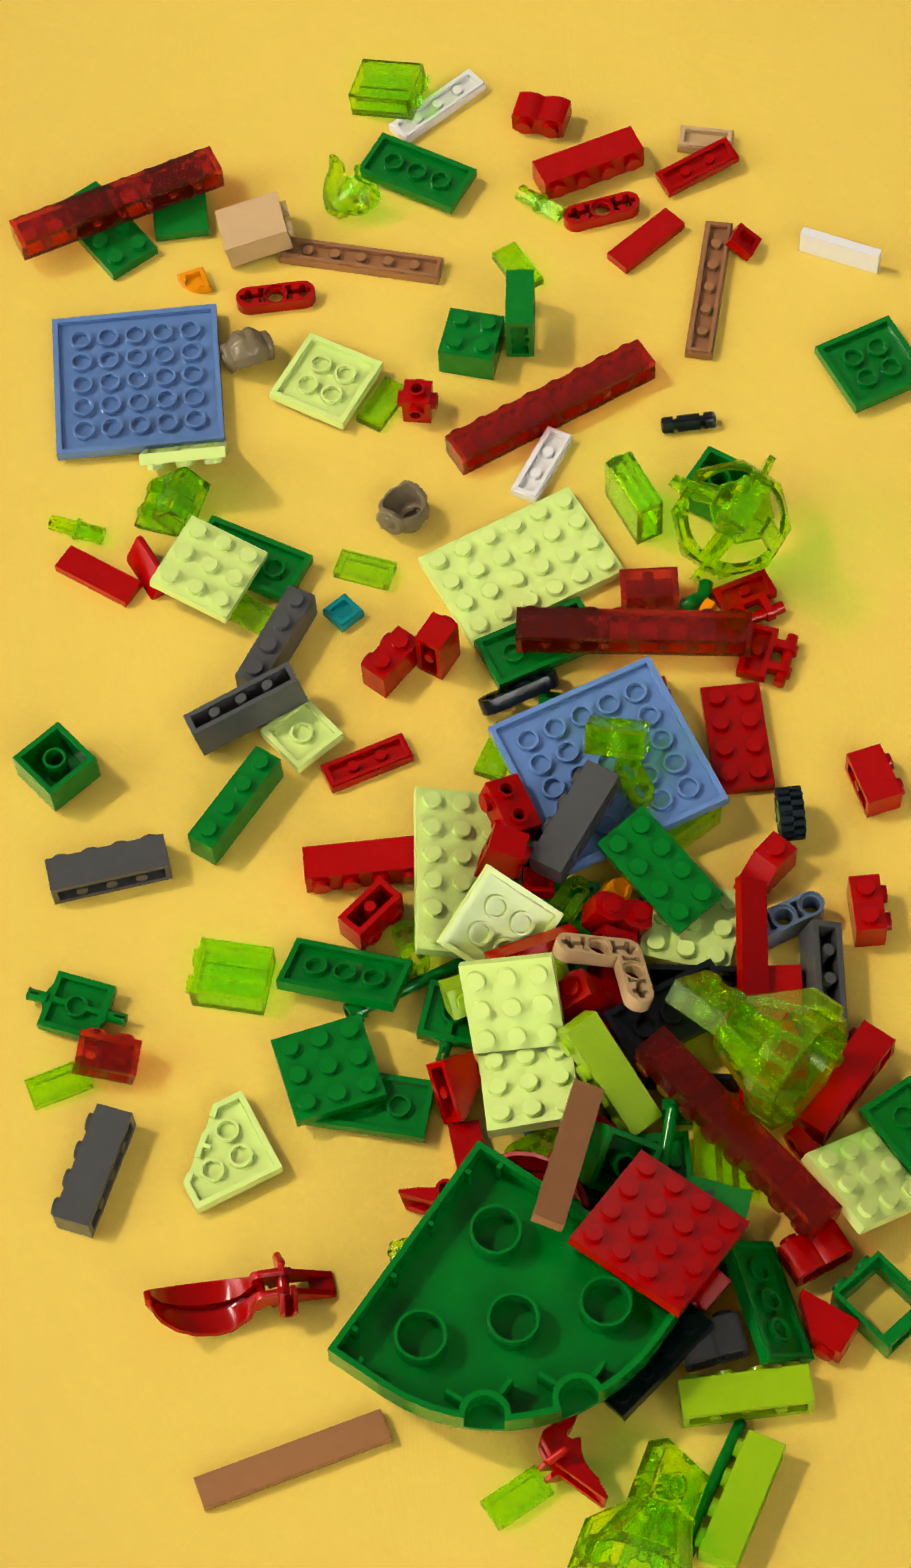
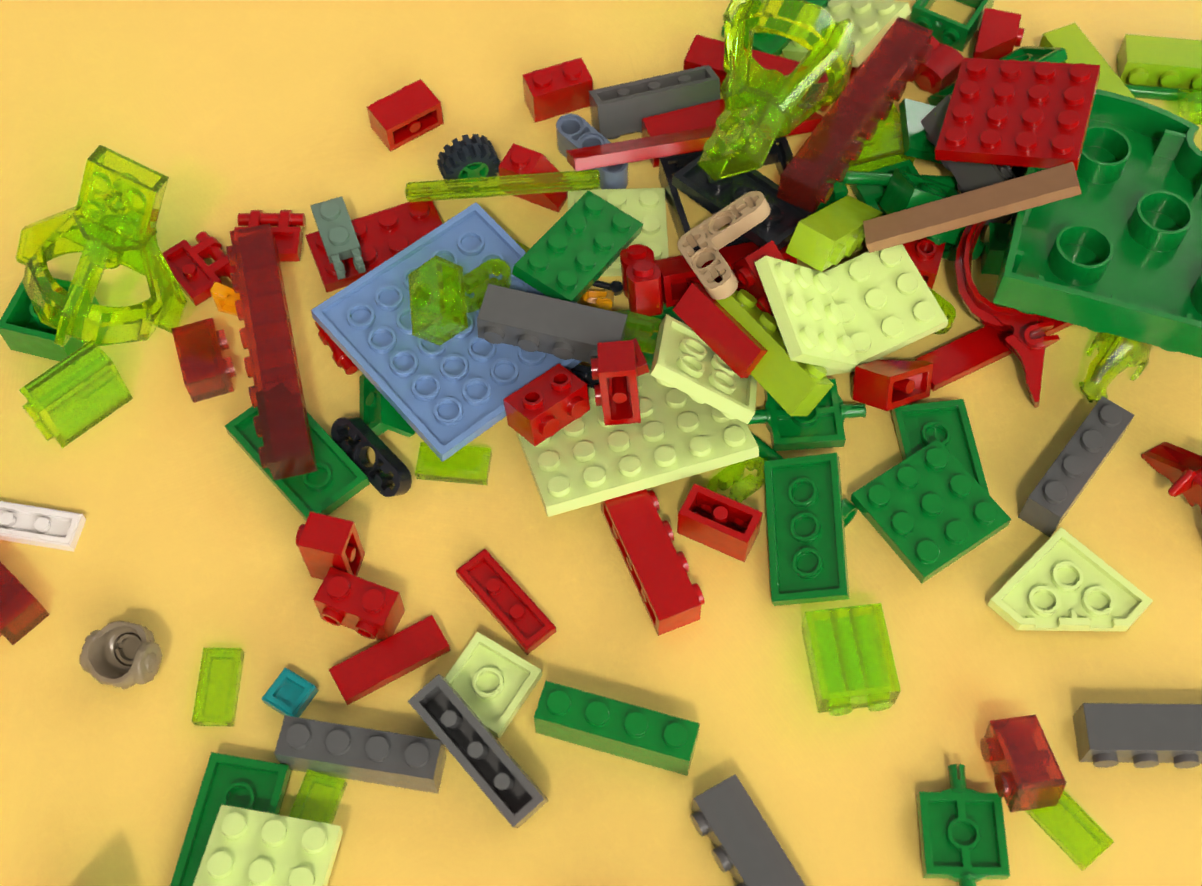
camera: 110 degrees left, 0 degrees up
(331, 1201) = (1075, 466): none -> dark grey brick
(346, 678) = (389, 659): none -> red tile
(521, 560) = (185, 509): yellowish green plate -> none
(694, 600) = (203, 311): green arm -> none
(738, 700) = (338, 235): none -> sand green hinge
(752, 827) = (503, 185): none -> clear neon green axle

